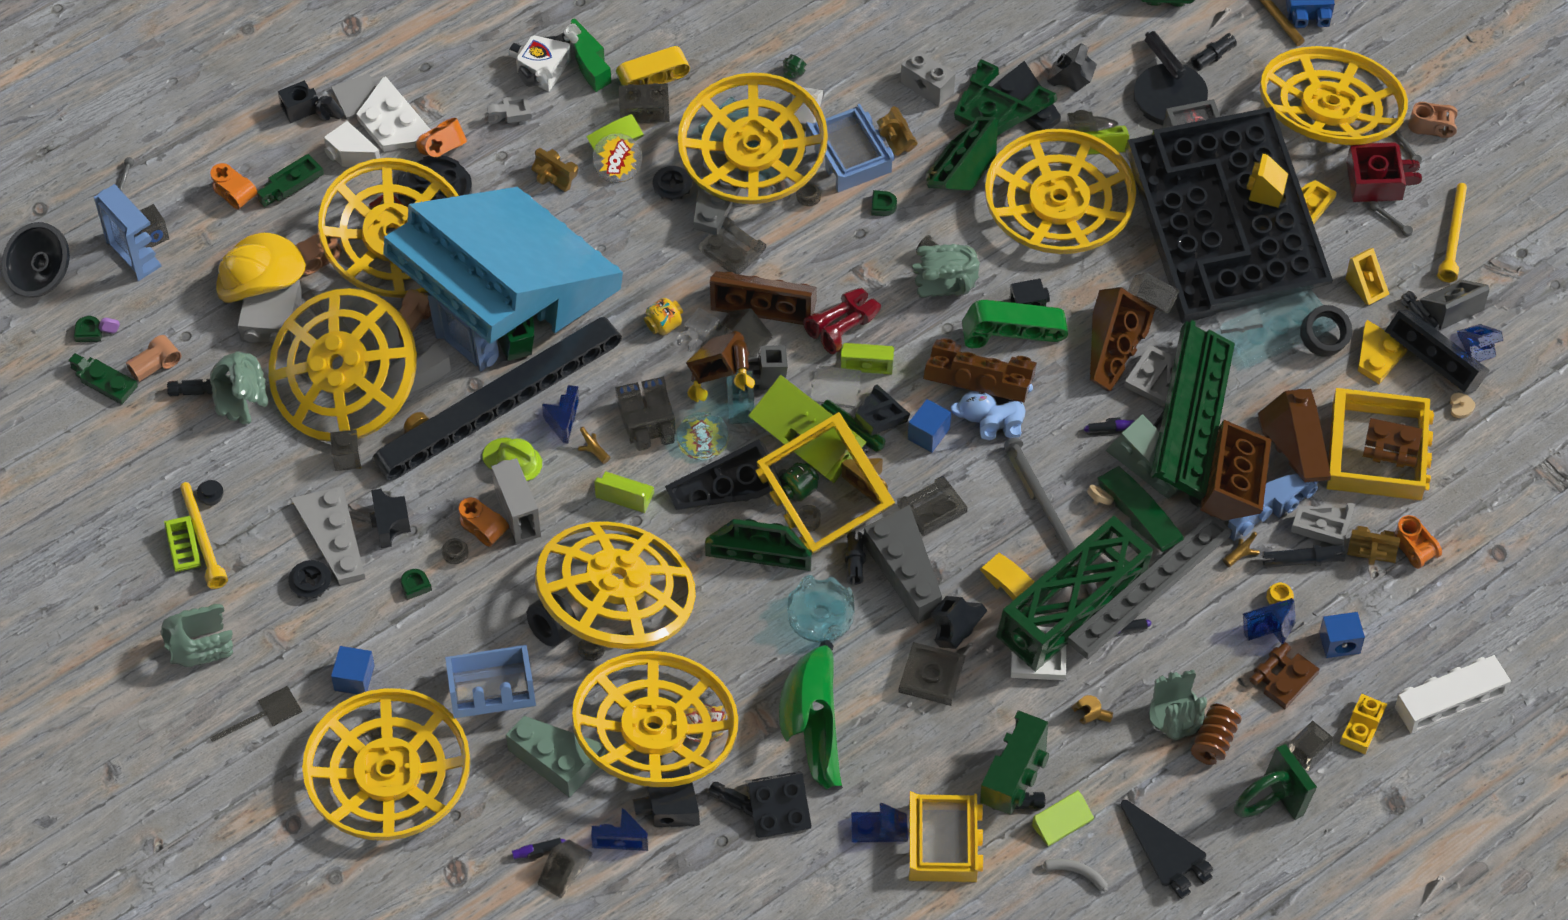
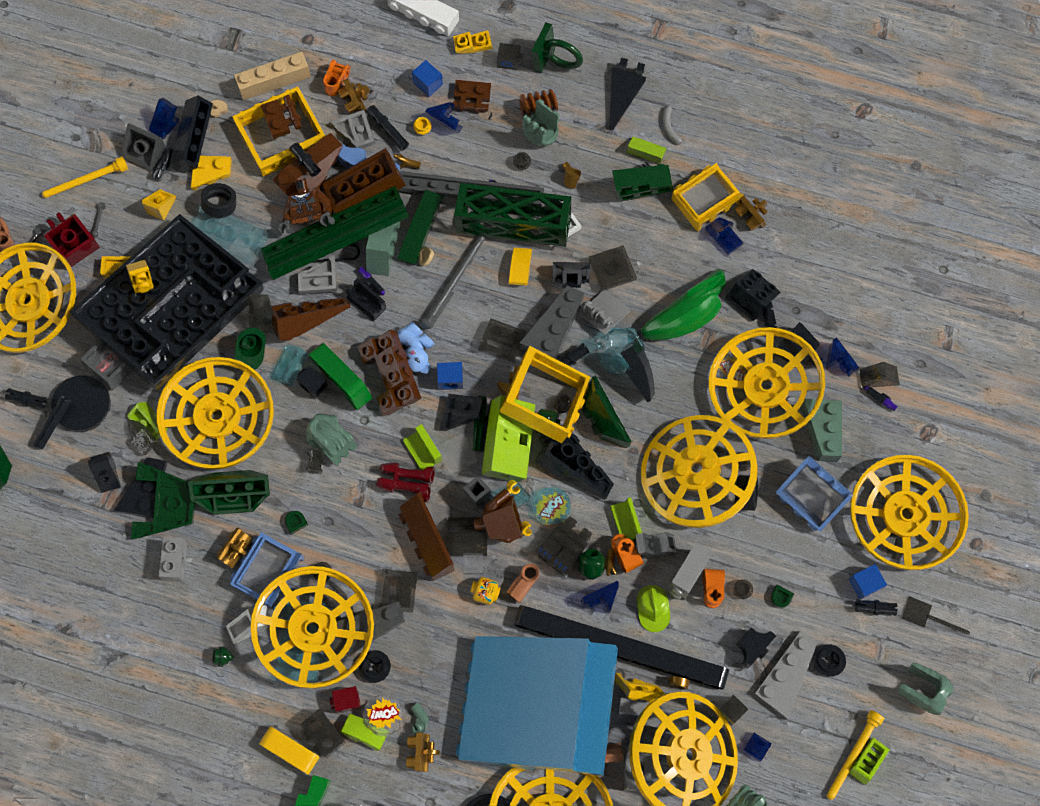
camera: 130 degrees left, 15 degrees up
(210, 492) = (823, 774): black plate -> none
(291, 454) = (757, 747): none -> clear blue tile
(319, 665) = (876, 607): none -> black pin
(441, 381) = (638, 689): none -> yellow wing
(576, 492) = (655, 545): none -> dark grey brick
(585, 191) = (421, 719): none -> sand green arm
(589, 463) = (626, 553): none -> orange piece
(605, 422) = (591, 564): none -> dark green head
(642, 355) = (523, 584): none -> nougat piece
(659, 139) = (345, 700): none -> dark red brick
(778, 599) = (639, 369): none -> black slope
(832, 597) = (614, 343): none -> clear plate
(882, 874) = (756, 219): none -> pearl gold hips
(883, 627) = (604, 311): none -> light grey hinge
(1068, 294) = (289, 365): none -> clear light blue slope
(1089, 406) = (366, 300): none -> black hinge
(1114, 262) = (250, 347): none -> dark green piece
(1149, 670) = (522, 161): none -> clear smoke plate
(1248, 401) = (306, 206): none -> torso
(1308, 423) = (304, 159): none -> black pin
(1463, 476) = (272, 75): none -> tan brick

